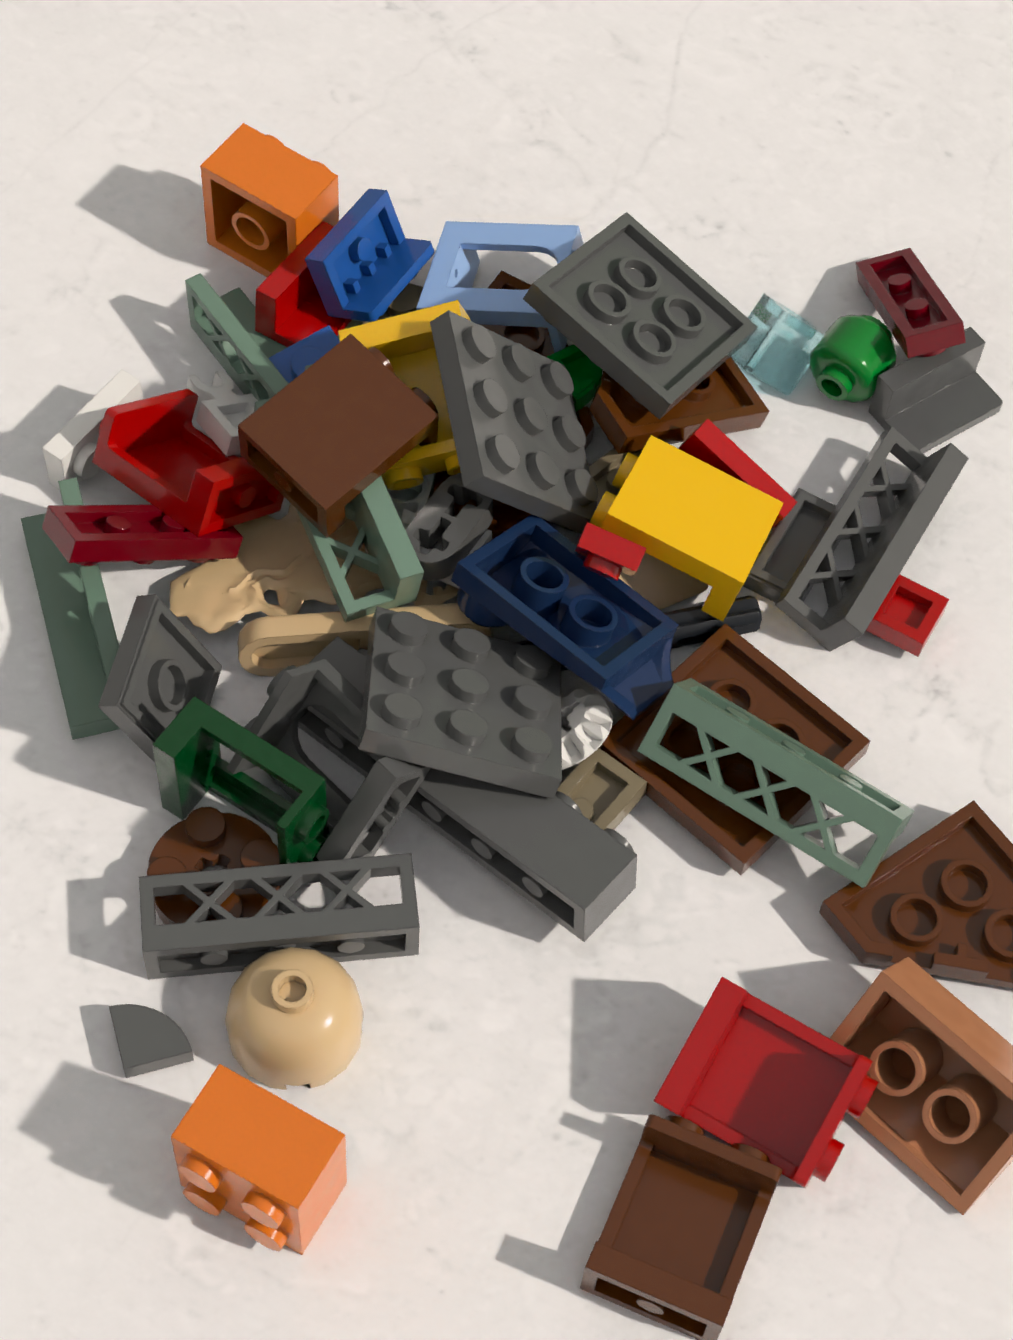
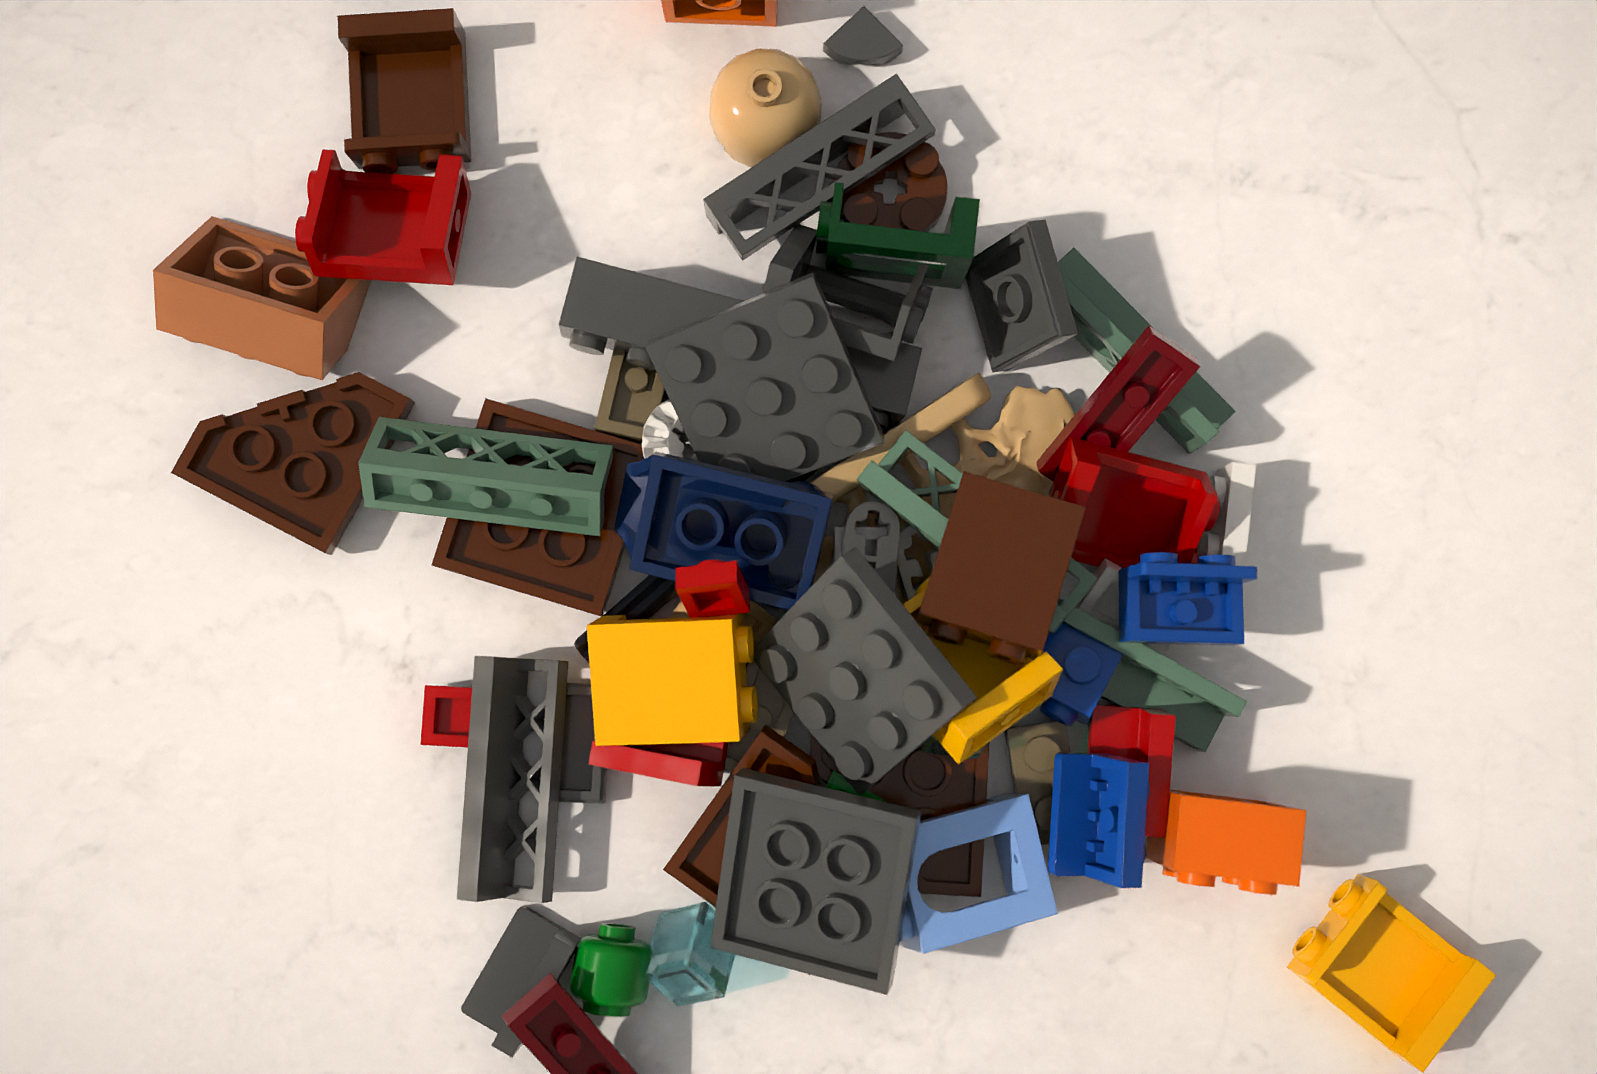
camera: 155 degrees right, 25 degrees up
(190, 362) = (1183, 601): none -> blue bracket
(194, 84) = (1389, 971): none -> yellow panel

